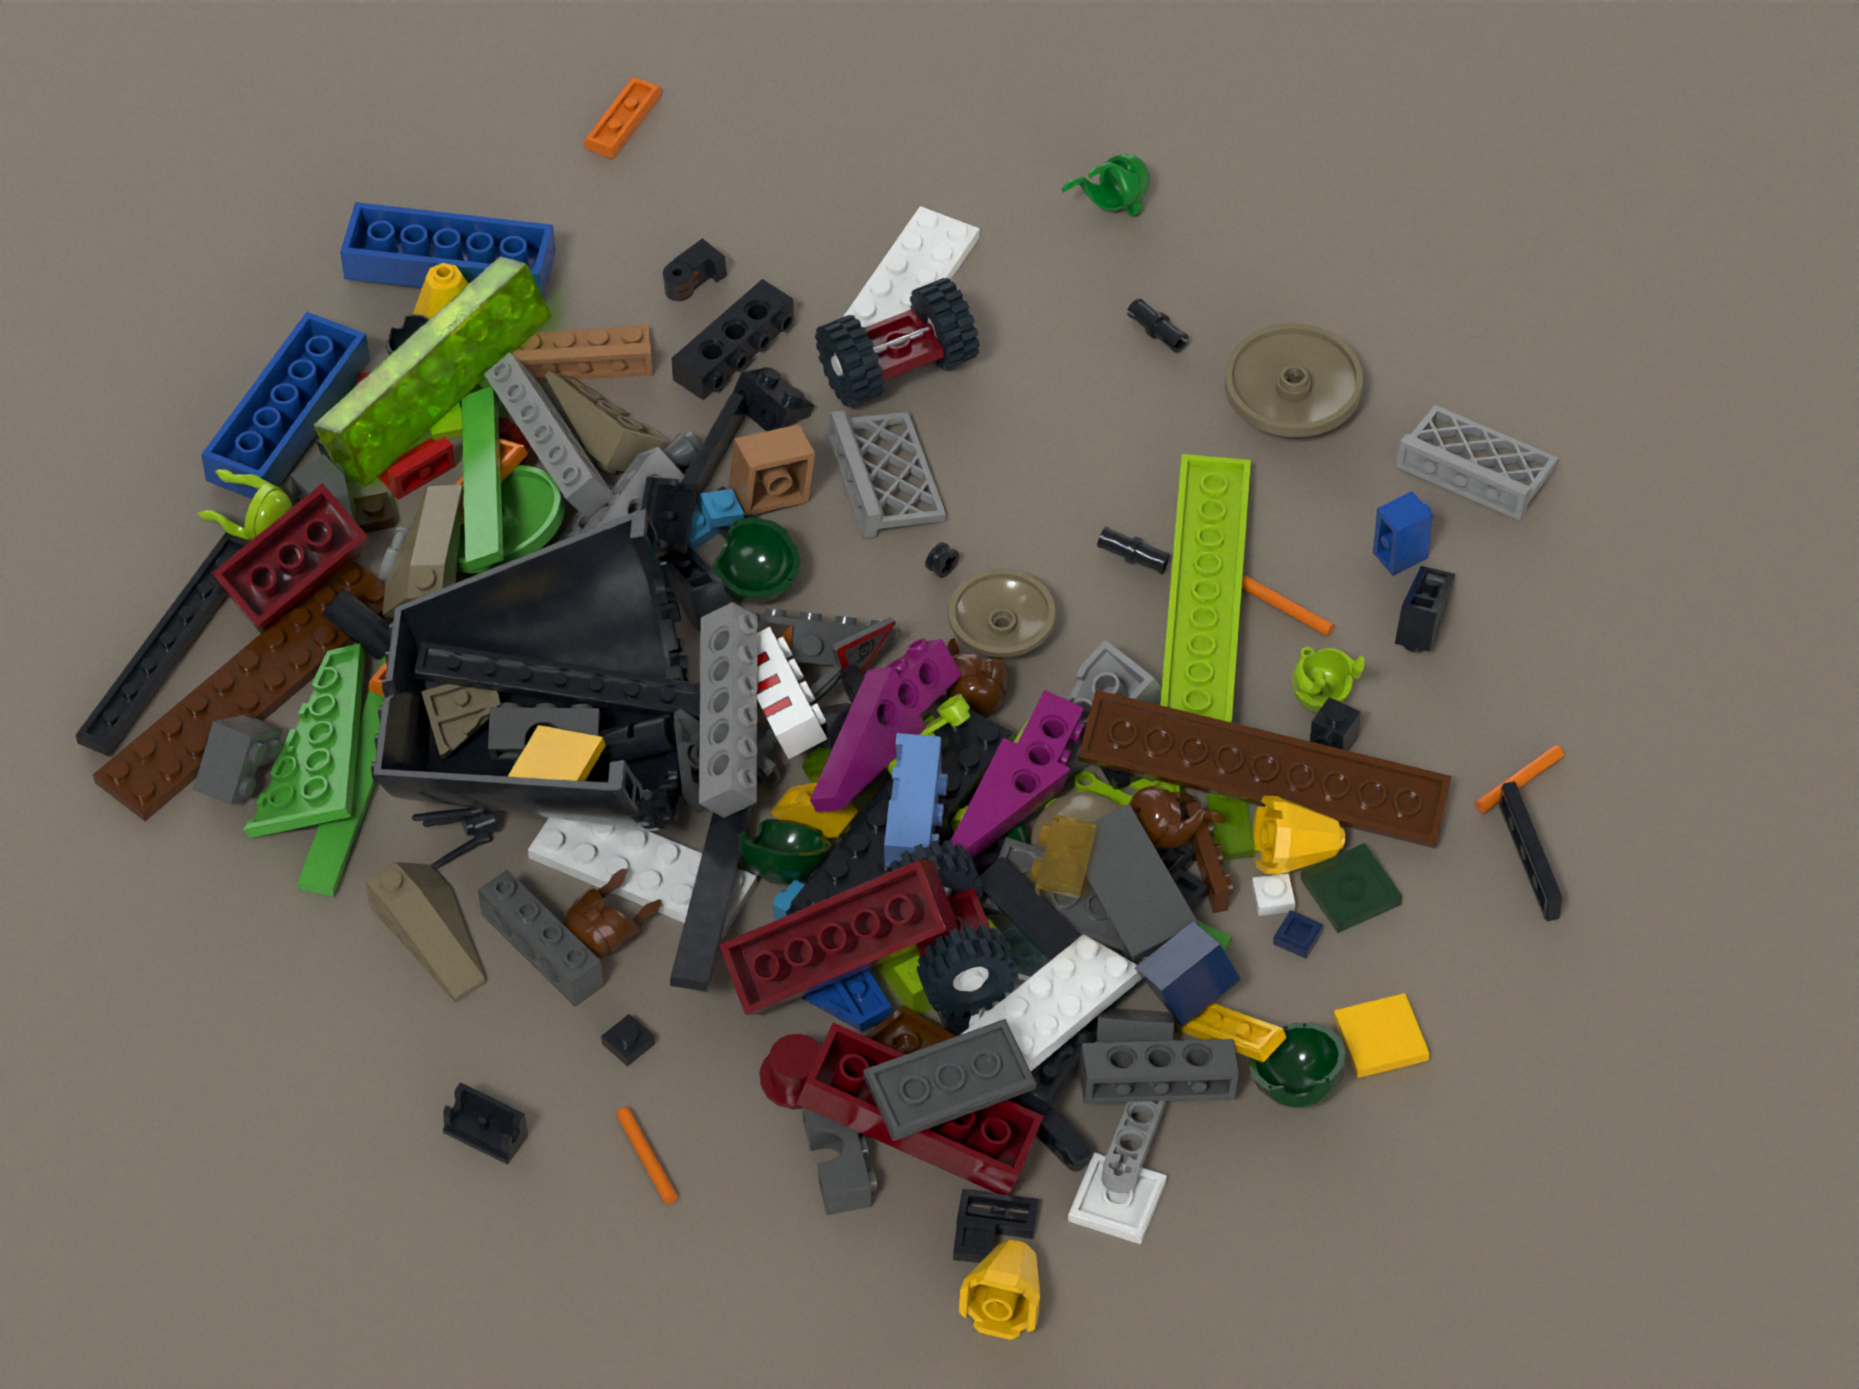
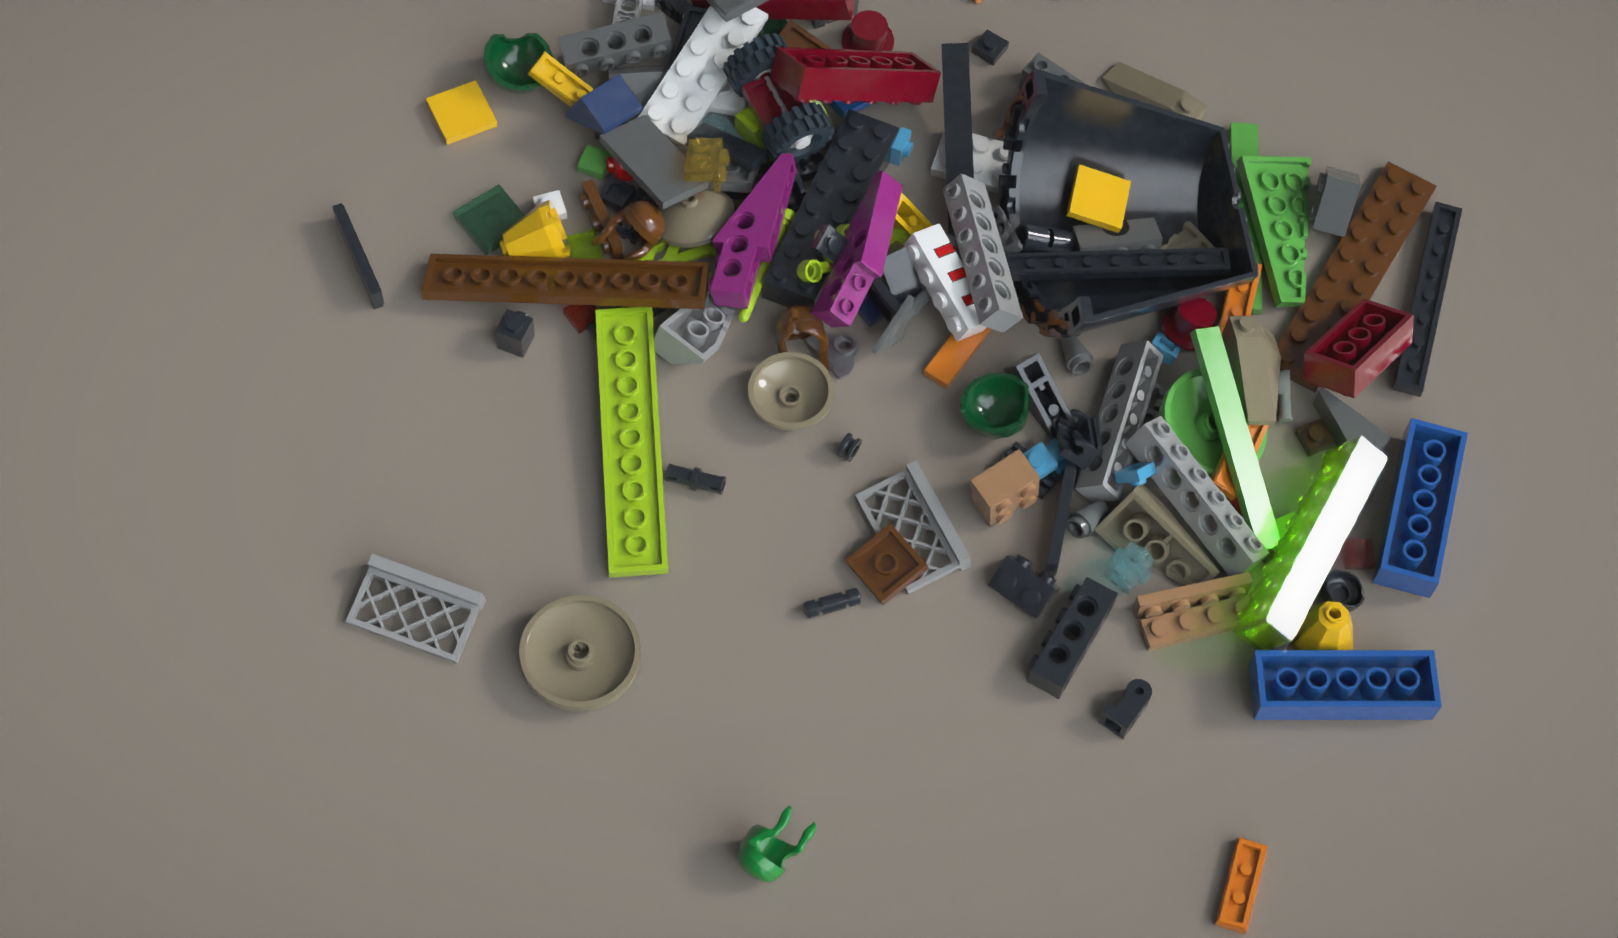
camera: 165 degrees right, 10 degrees up
(264, 509) = (1396, 398): lime hair -> none
(358, 623) = (1288, 314): black pin -> none
(418, 466) = (1293, 481): red panel -> none
(613, 462) = (1135, 473): none -> dark azure plate
(647, 390) = (1129, 567): none -> clear light blue brick
(784, 851) = (918, 168): dark green cylinder -> none
(814, 638) = (925, 359): dark grey bracket -> none
(864, 357) = (929, 628): black plate -> none
(915, 795) = (822, 183): medium blue wedge -> none
(924, 252) = (938, 724): white plate -> none
(926, 435) = (886, 564): none -> reddish brown tile
(926, 723) = (829, 244): none -> black plate
(997, 410) = (832, 603): none -> black axle
(1157, 325) = (707, 709): black pin -> none
(1287, 606) = (564, 450): orange bar -> none
(1298, 934) = (528, 180): dark blue tile -> none
(1324, 673) = (529, 369): lime hair -> none
(1402, 533) = (473, 503): blue brick -> none
(1424, 609) = (450, 456): black slope -> none
(1521, 777) = (367, 324): orange bar -> none

